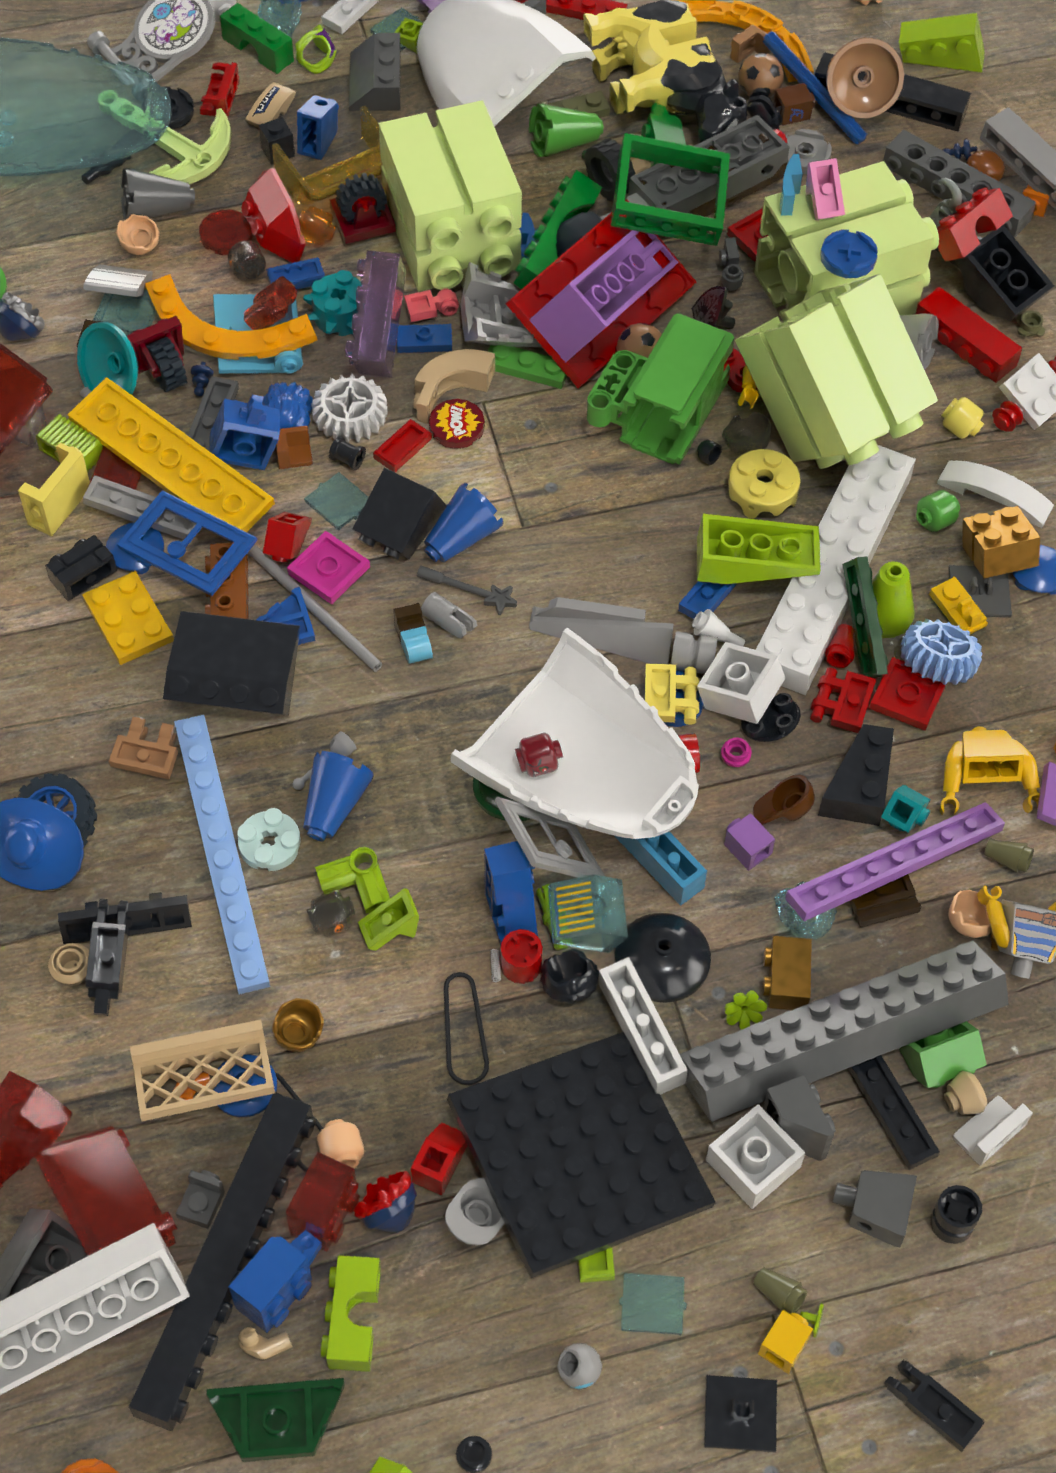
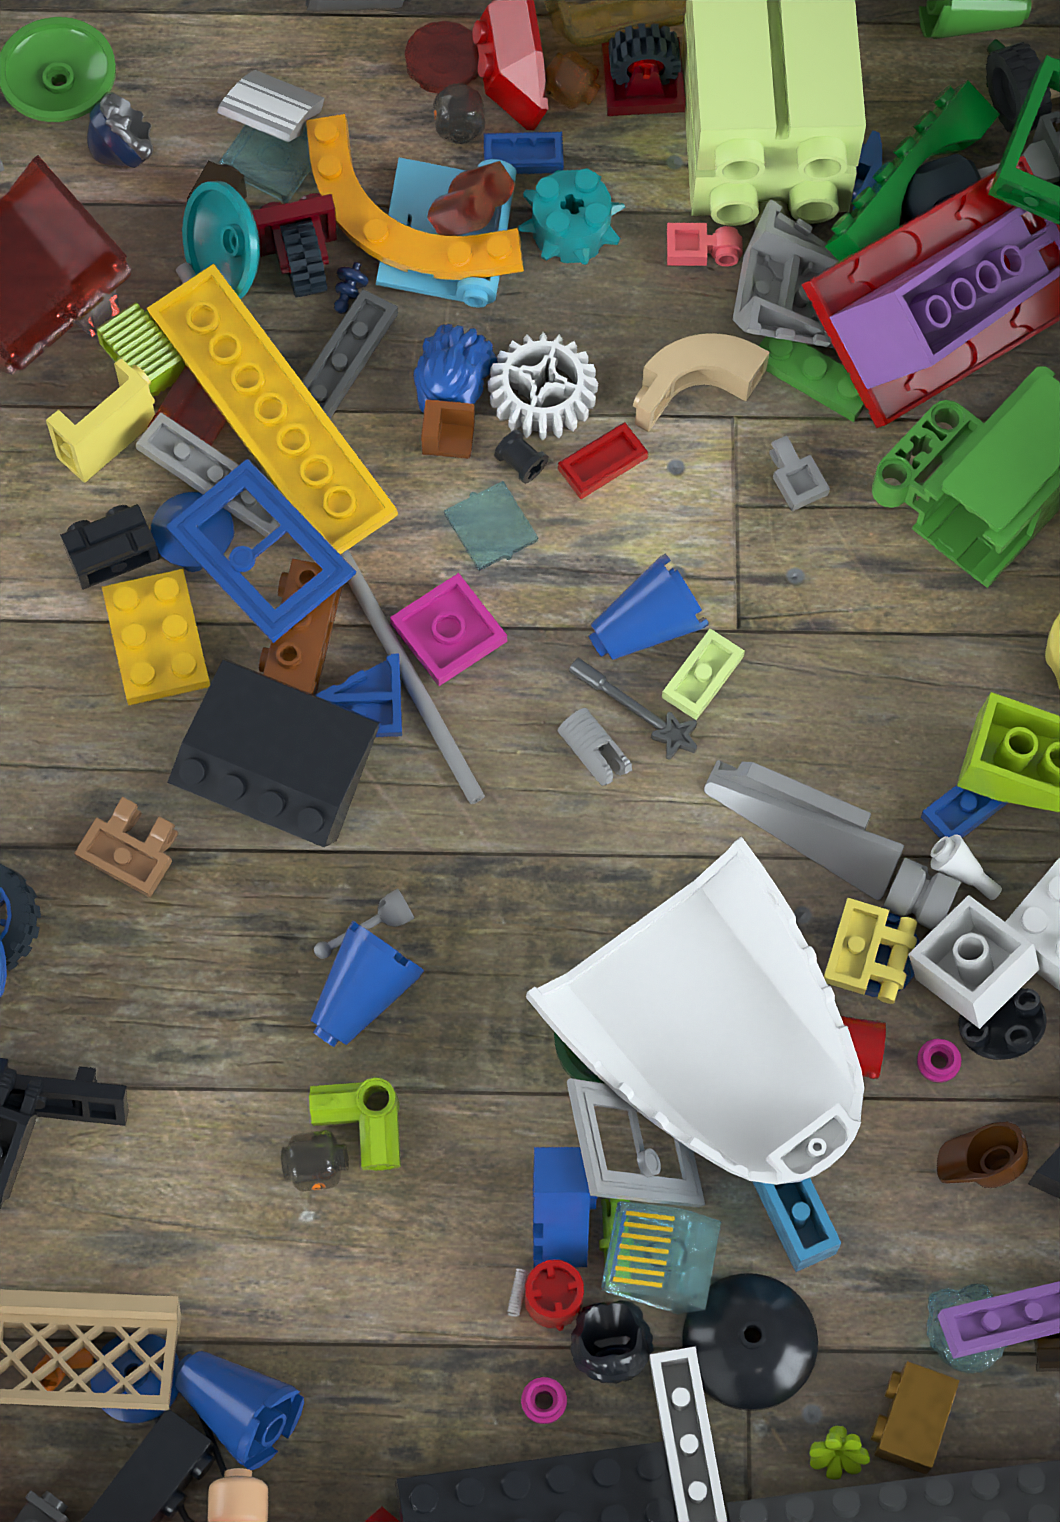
camera: 15 degrees right, 10 degrees up
(137, 234) = (317, 36): light nougat hair -> none
(222, 855) = (192, 1029): light blue plate -> none
(245, 433) = (382, 399): blue hinge -> none
(265, 824) = (248, 1047): light aqua plate -> none
(285, 535) = (402, 565): red slope -> none
(297, 1024) = (226, 1315): pearl gold hair -> none
(324, 1079) = (239, 1405): none -> blue cone
(378, 313) = (616, 256): clear purple piece -> none
(390, 919) = (388, 1194): lime slope -> none
(398, 515) = (565, 575): black slope -> none
(412, 633) = (538, 763): leg -> none
(424, 338) = (679, 295): blue plate -> none
(456, 423) = (688, 444): tile -> none
(480, 1027) = (473, 1375): black piece -> none
(508, 556) = (703, 674): none -> yellowish green plate
(533, 1019) = (544, 1386): none -> dark pink plate
(534, 427) = (797, 478): none -> light grey plate
(538, 755) = (652, 1014): dark red head -> none
(638, 339) = (981, 385): medium nougat piece -> none
(709, 451) = (1035, 577): black hinge -> none
(749, 841) = (916, 1202): medium lavender brick -> none

